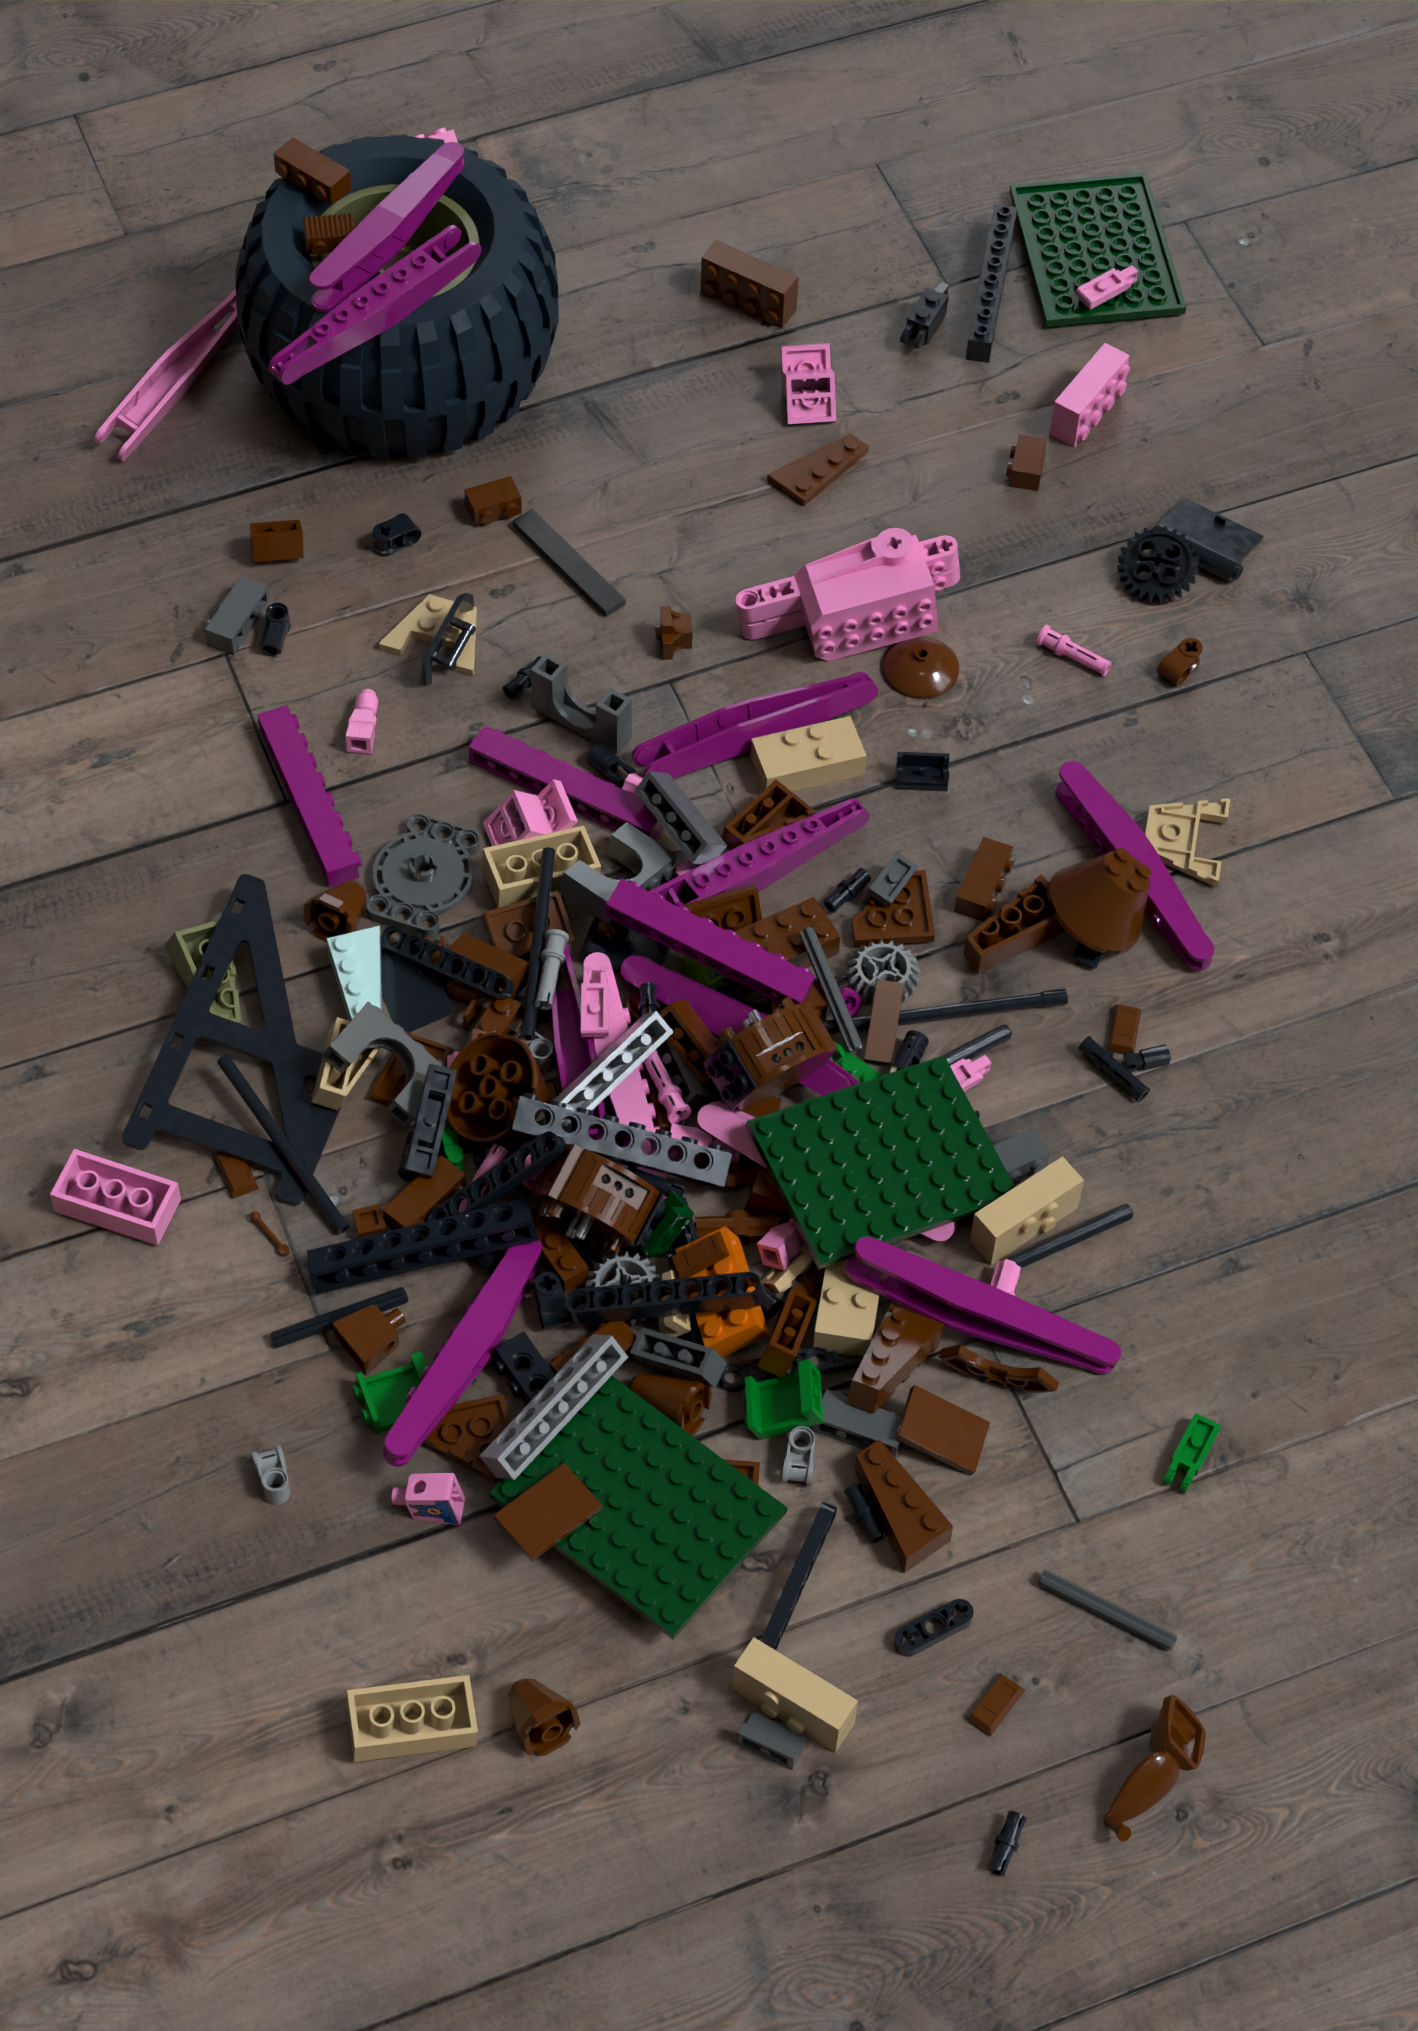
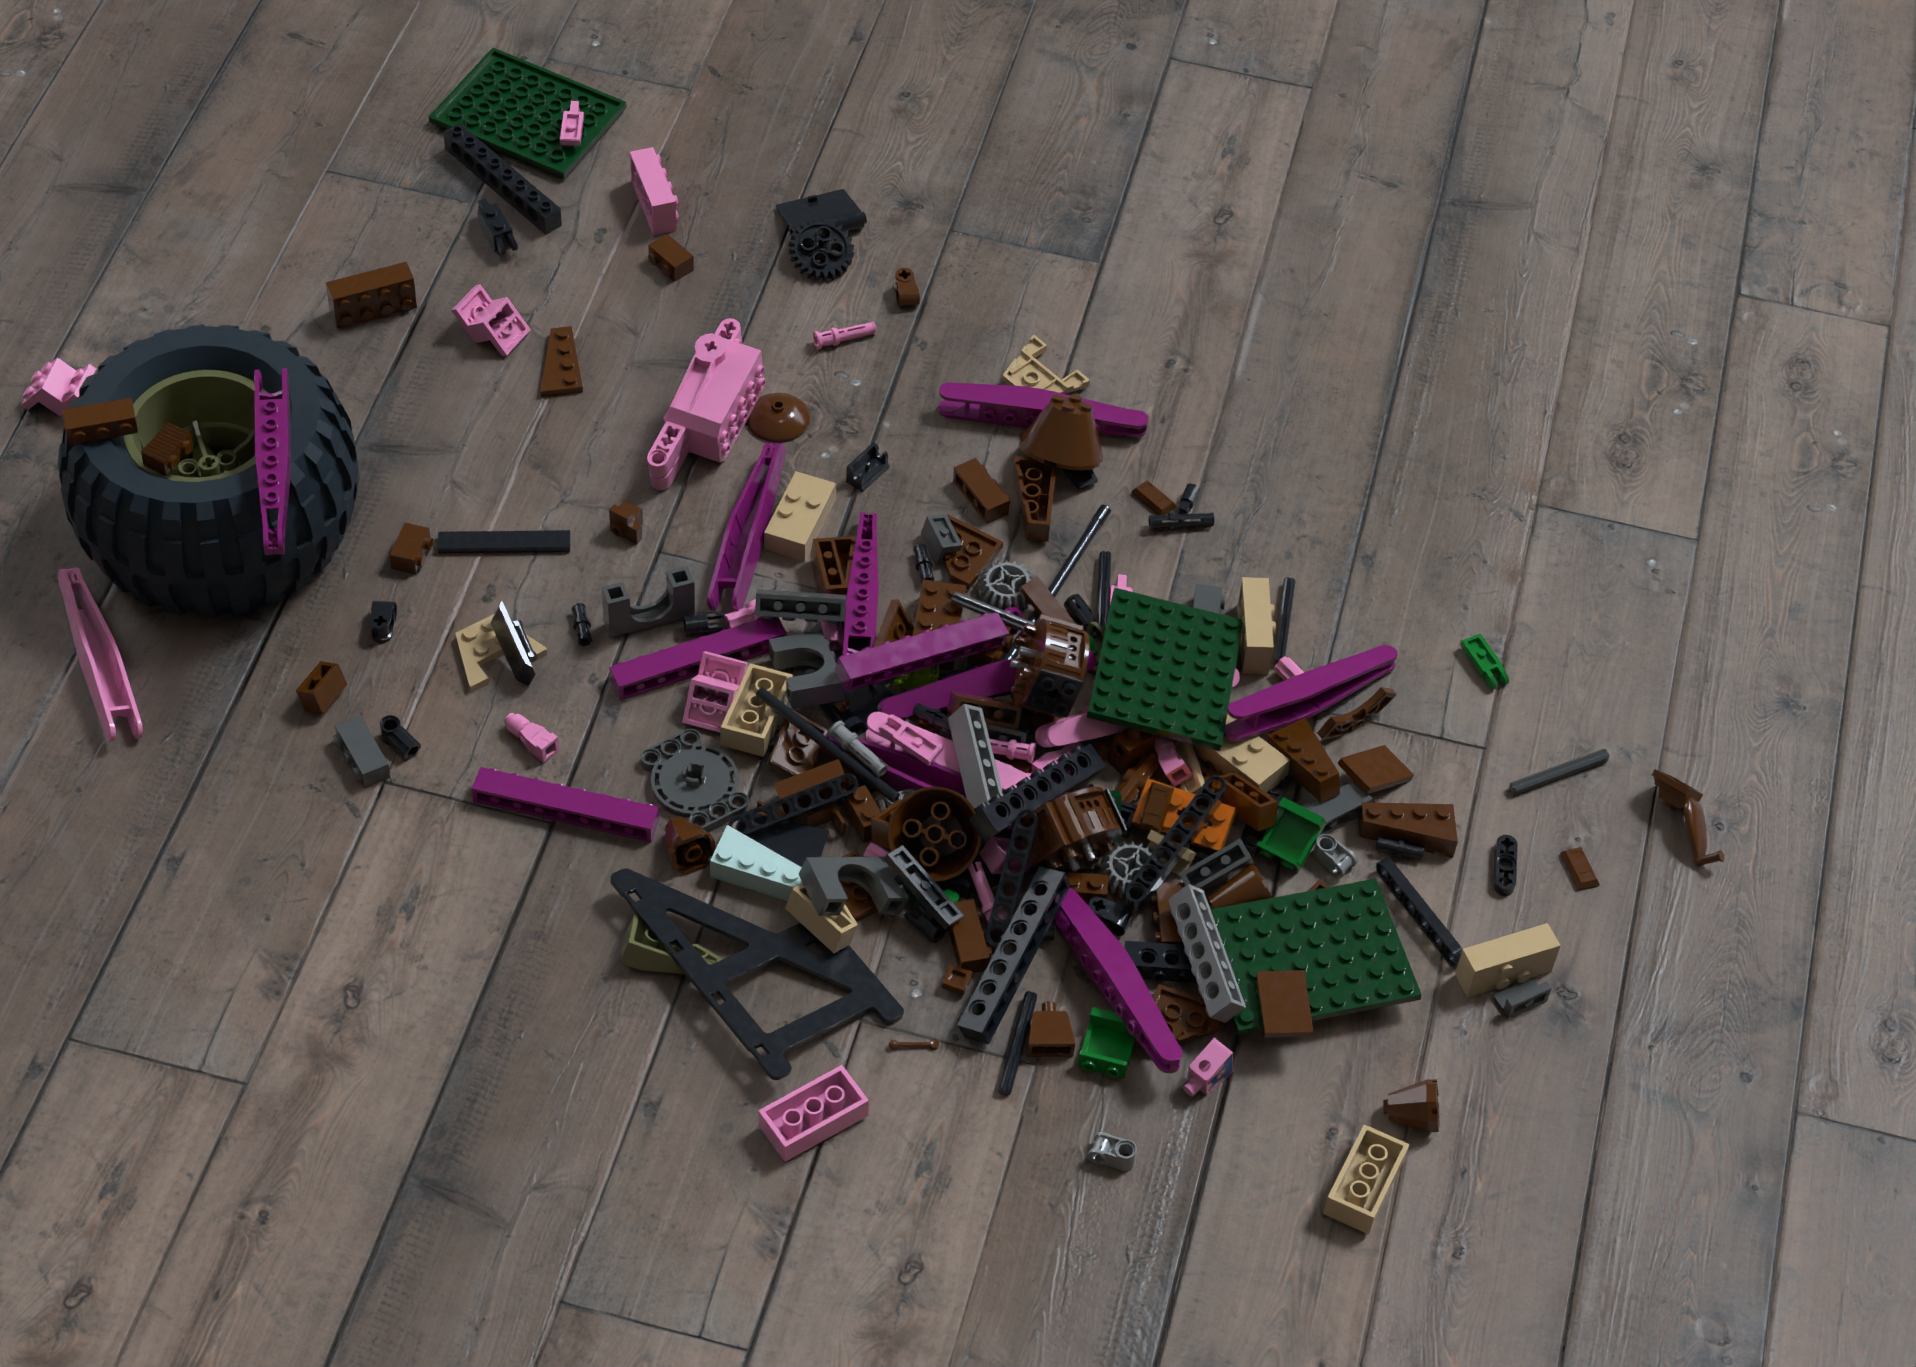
camera: 55 degrees left, 5 degrees down
(236, 1175) = (847, 1035): reddish brown tile -> none
(283, 1144) = (853, 989): black piece -> none
(385, 229) = (203, 410): magenta piece -> none
(1006, 1843) = (1680, 920): black pin -> none

